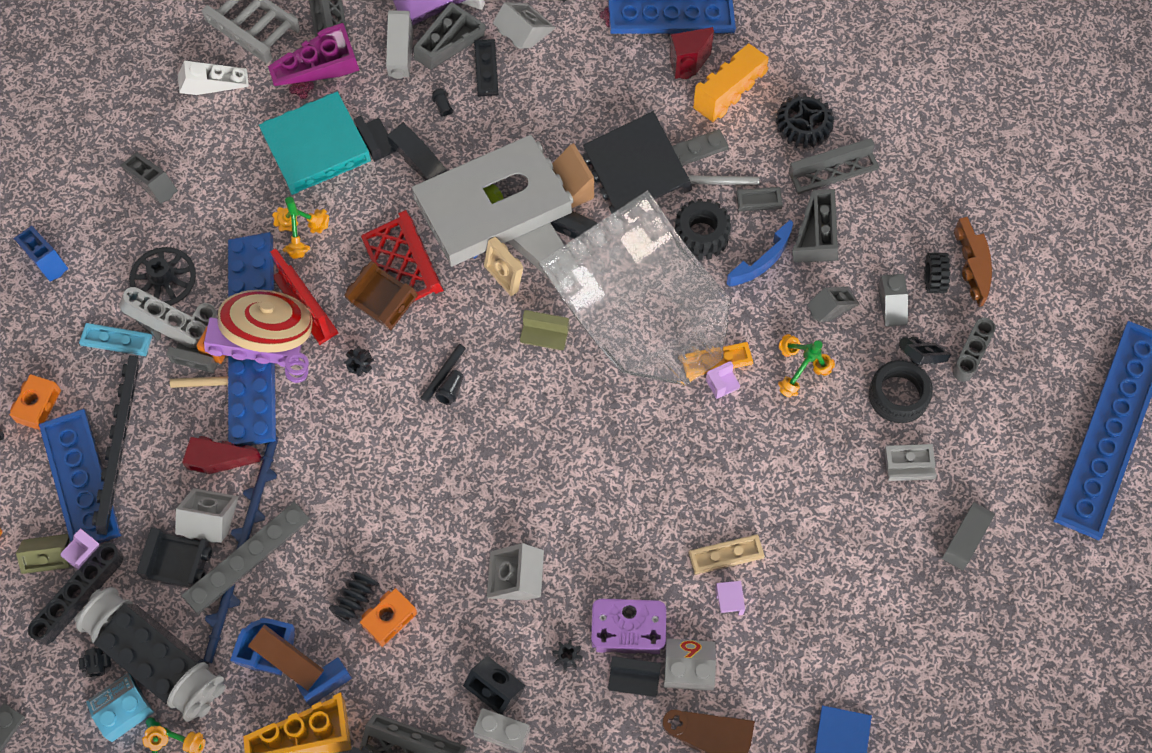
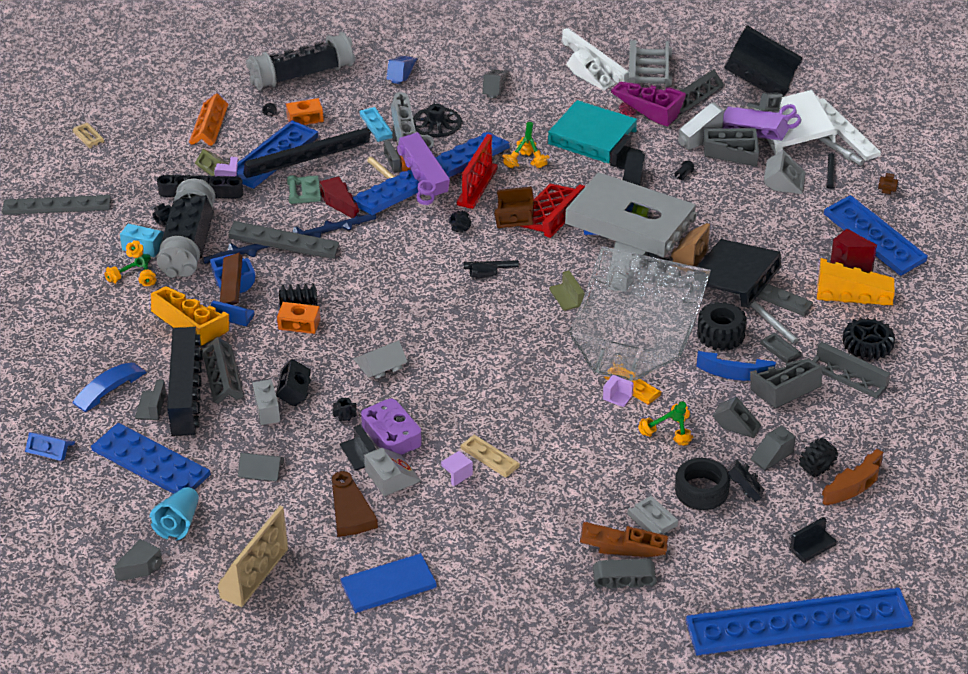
camera: 55 degrees right, 25 degrees down
(166, 59) = (613, 69): none -> white plate
(172, 476) = (309, 186): none -> sand green plate
(173, 559) = (256, 210): black panel -> none
(205, 515) = (295, 210): light grey slope -> none
(264, 321) = (438, 156): tan dish -> none
(486, 67) = (733, 177): black tile -> none
(503, 266) = (591, 246): tan plate -> none
(927, 508) = (626, 543): none -> dark orange slope
(978, 341) = (779, 510): dark grey beam -> none
(1027, 350) = (811, 541): none -> black panel

